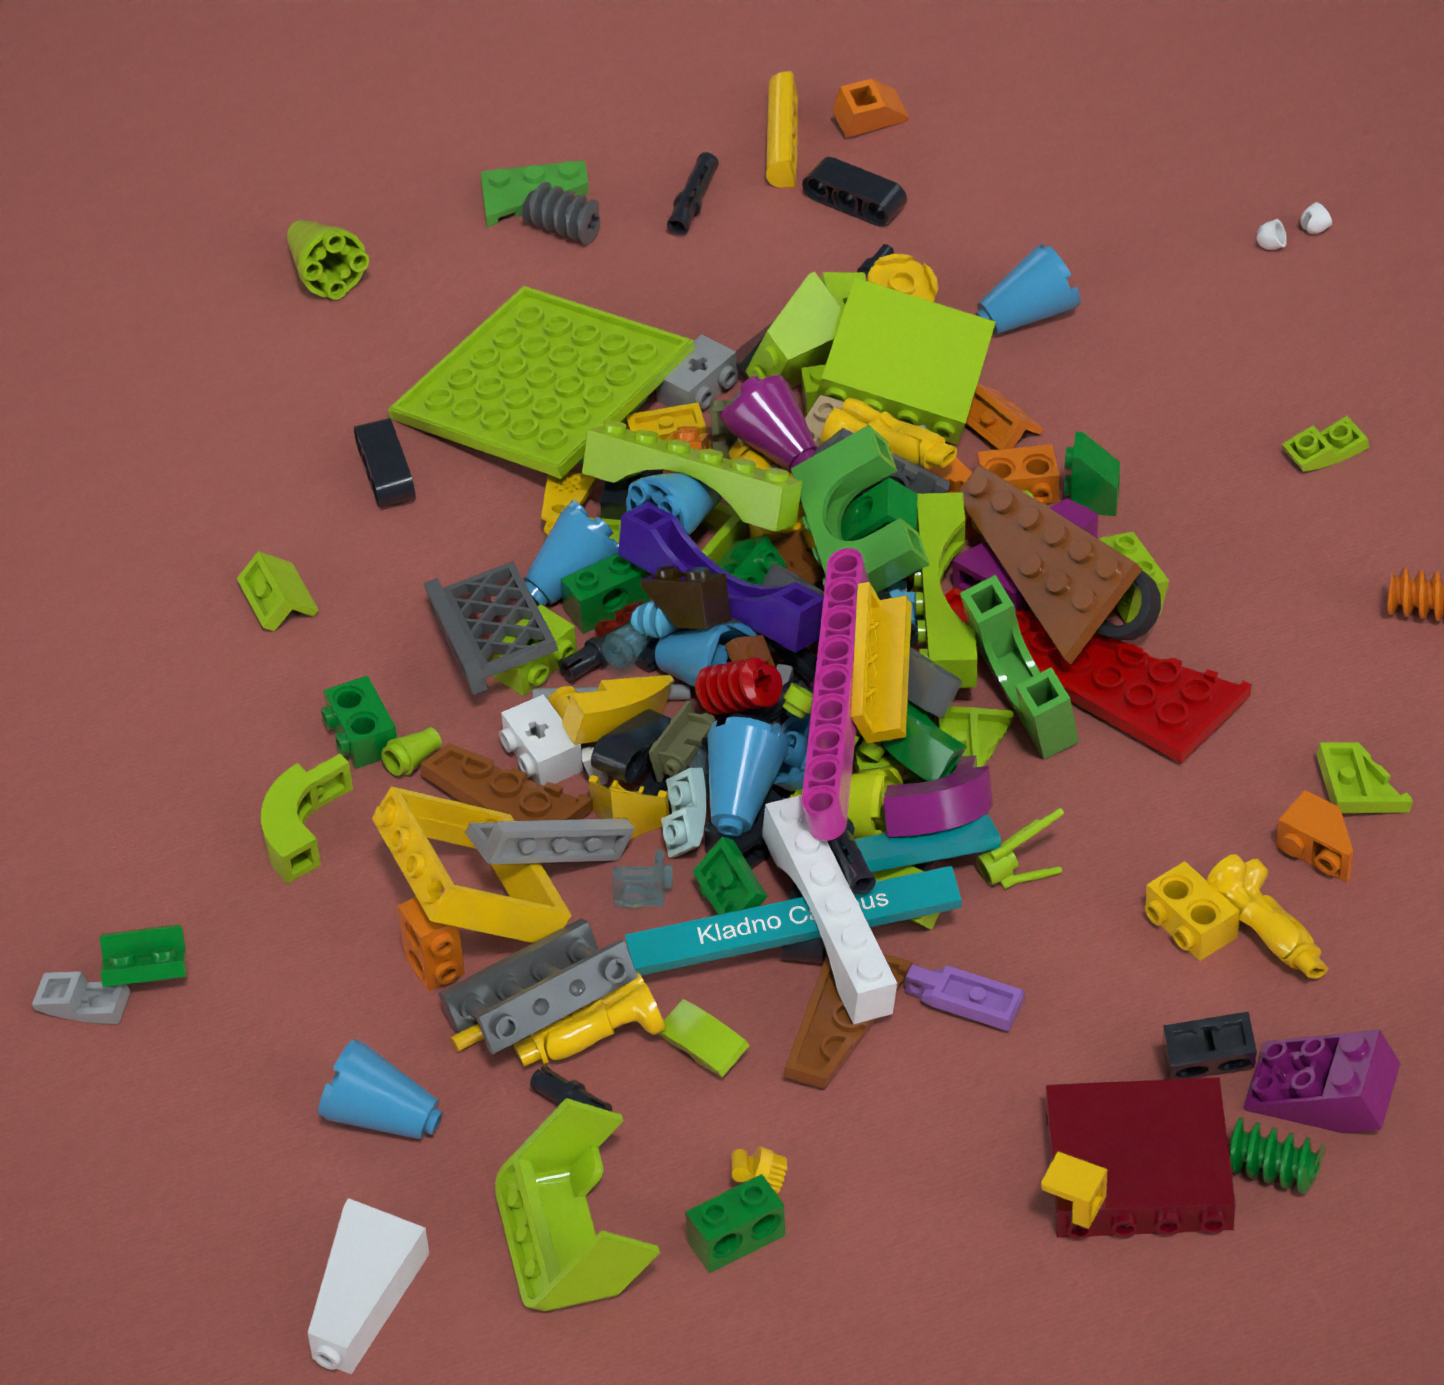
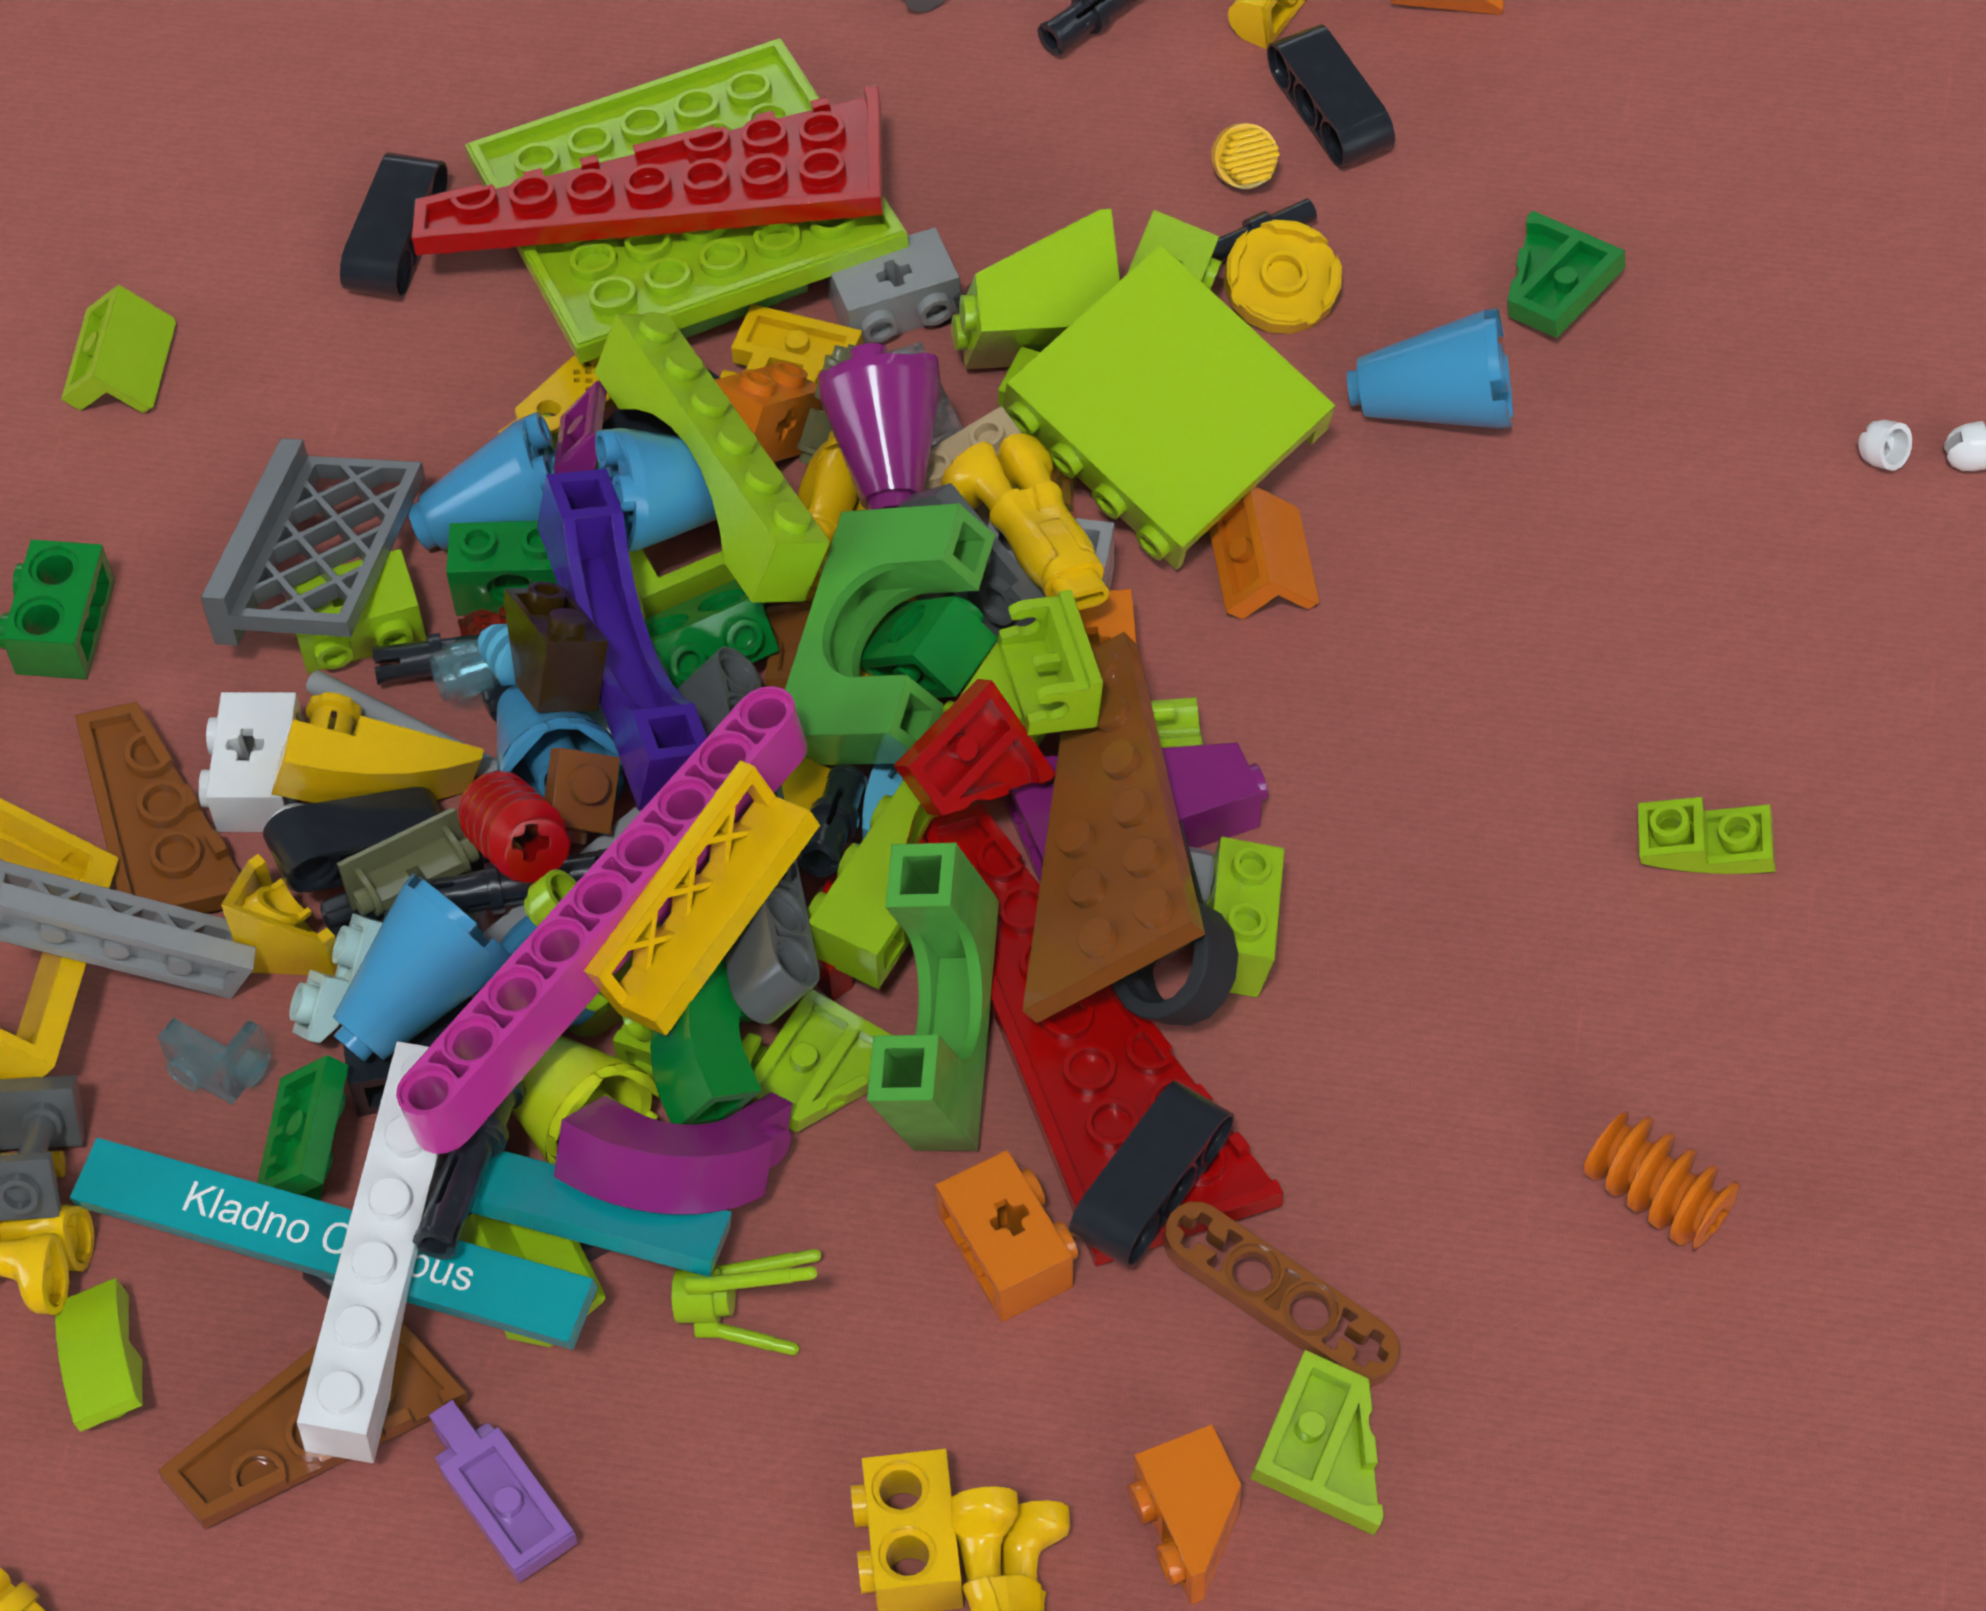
camera: 30 degrees right, 10 degrees up
(407, 752) = (89, 685): lime cone -> none
(550, 364) = (697, 180): none -> red wing
(603, 502) = (577, 432): none -> magenta slope
(834, 237) = (1244, 155): none -> yellow piece
(952, 547) = (972, 754): none -> red wing
(962, 488) = (1051, 665): none -> lime hinge
(1027, 469) = (1213, 658): orange brick -> none
(1044, 223) = (1559, 274): none -> green wing
(1093, 476) = (1304, 724): green slope -> none
(1128, 767) = (1006, 1234): none -> orange brick
(1186, 700) = (1151, 1173): none -> black beam
(1285, 720) = (1287, 1284): none -> dark orange beam

